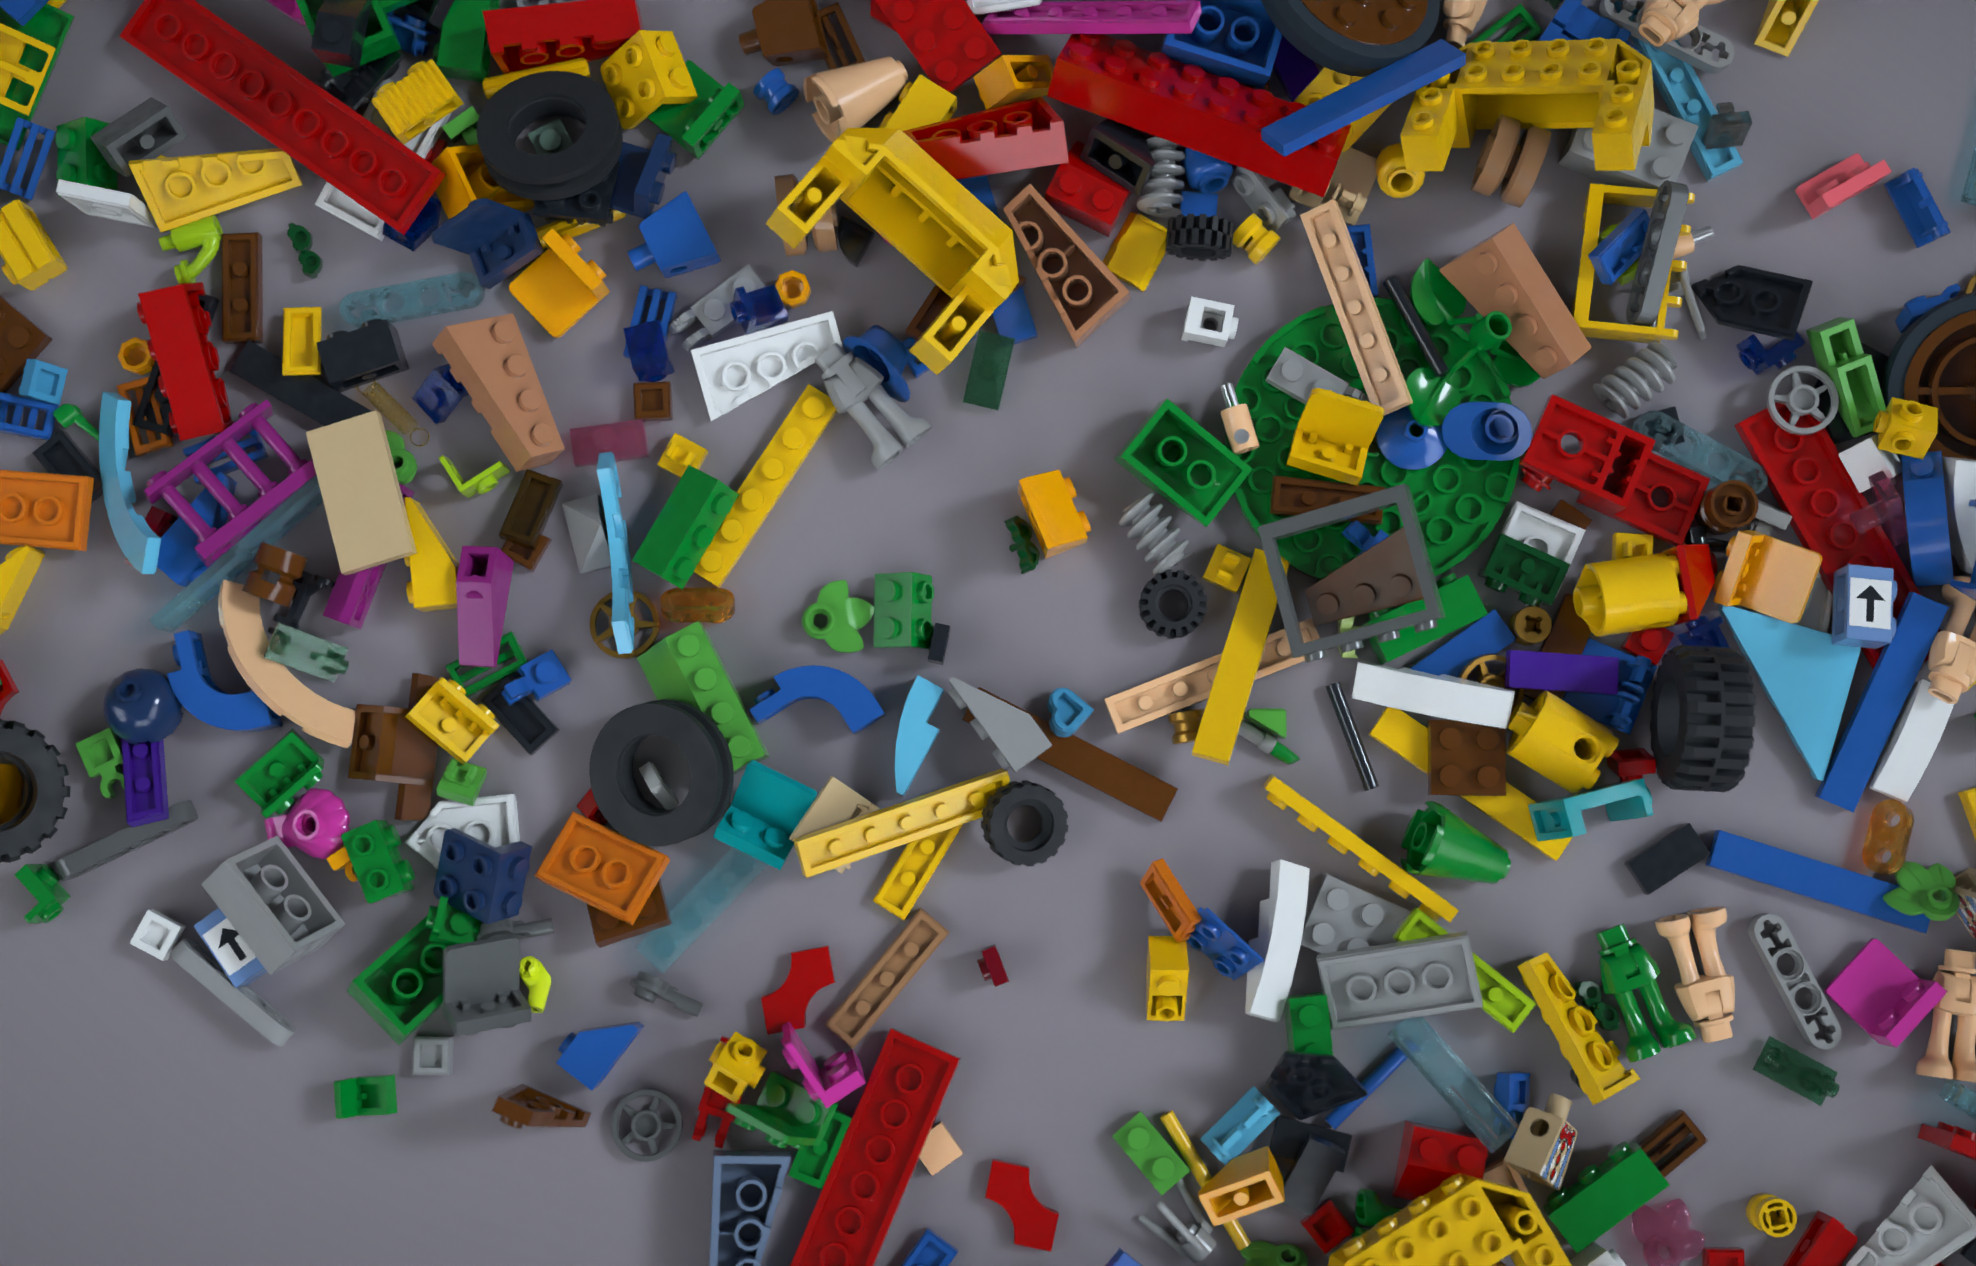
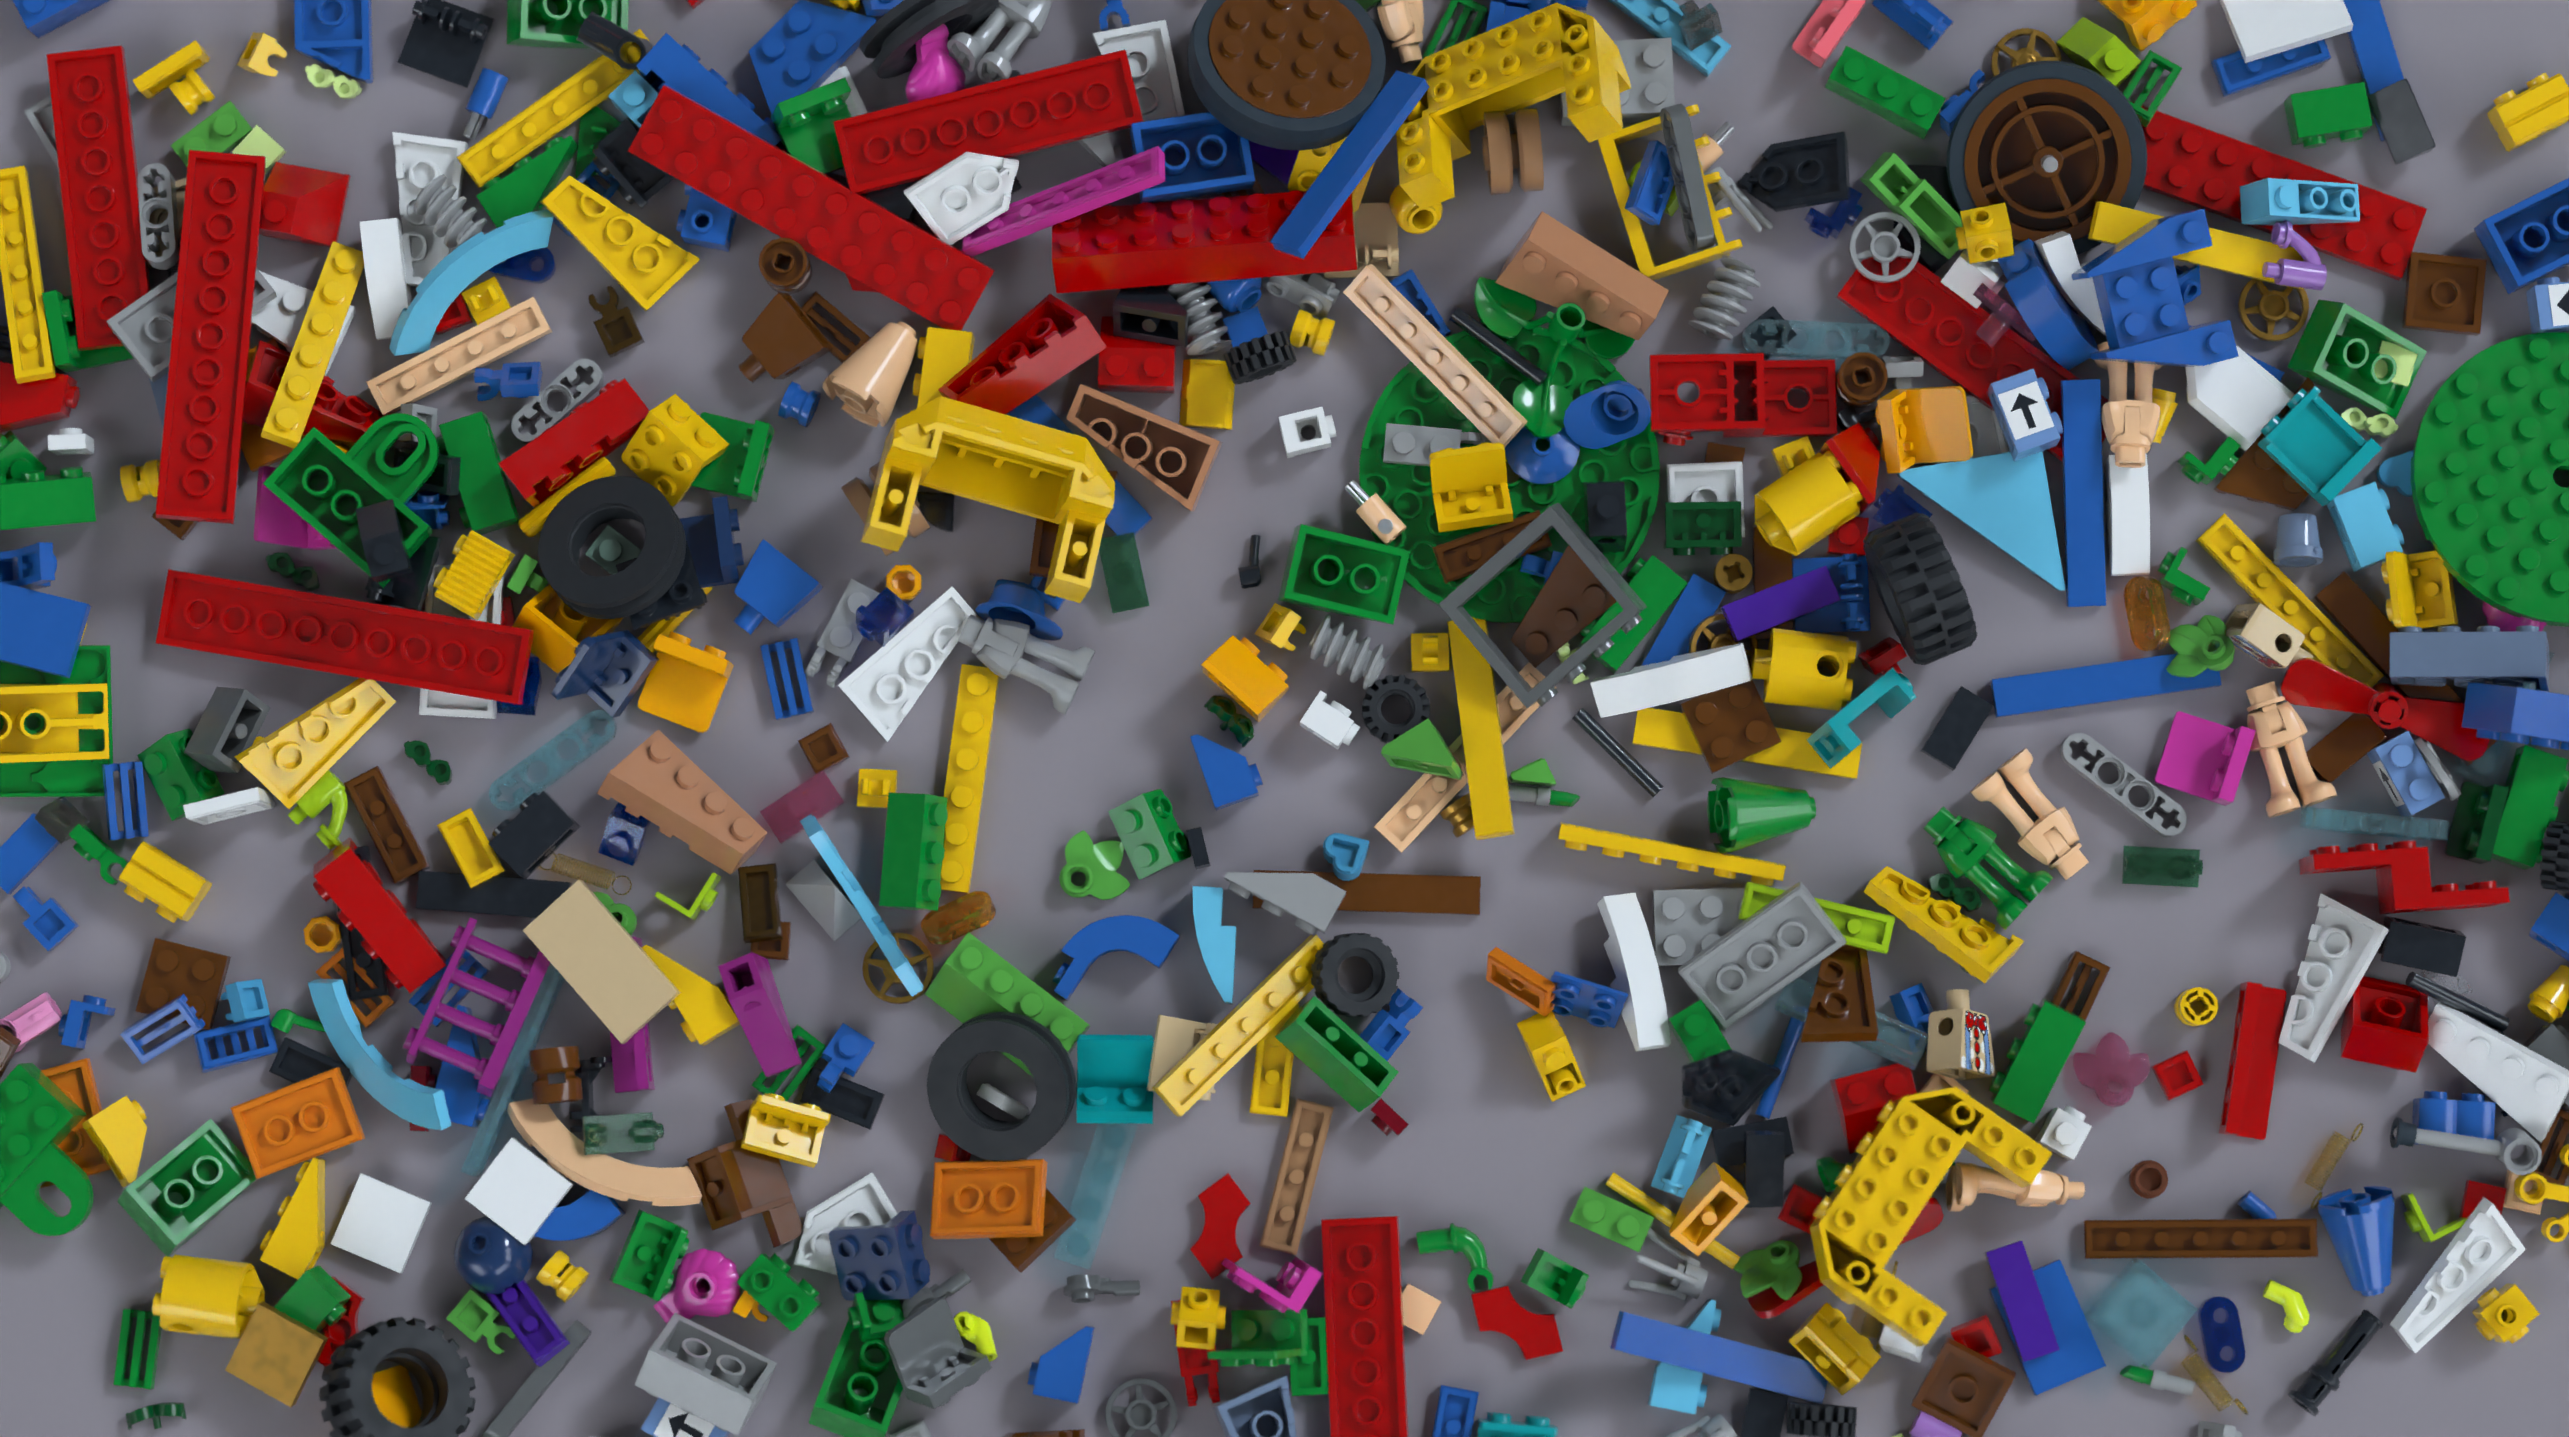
camera: 20 degrees left, 0 degrees up
(64, 632) = (381, 1223): none -> white tile
(189, 661) = (519, 1191): none -> white tile
(196, 755) = (569, 1281): none -> yellow wheel
(266, 26) = (302, 576): none -> dark green piece
(461, 782) = (819, 1184): bright green tile -> none
(648, 351) = (799, 704): clear blue bracket -> none
(974, 887) = (1336, 1054): none -> green brick
(995, 589) = (1226, 773): none -> blue slope
(1005, 1106) = (1458, 1240): none -> green piece
(1014, 79) = (1018, 288): light orange slope -> none
(1031, 886) = (1388, 1029): none -> blue plate
(1075, 1183) = (1555, 1278): none -> green bracket
(1100, 425) = (1250, 575): none -> black hand
(1103, 482) = (1278, 627): none -> yellow tile
(1108, 587) = (1329, 722): none -> white brick
(1179, 652) = (1422, 751): none -> bright green slope
(1445, 517) = (1605, 514): none -> black torso
(1454, 1058) = (1842, 1000): none -> reddish brown wing
(1864, 265) = (1884, 92): none -> green brick
(1930, 825) = (2183, 587): none -> green bracket

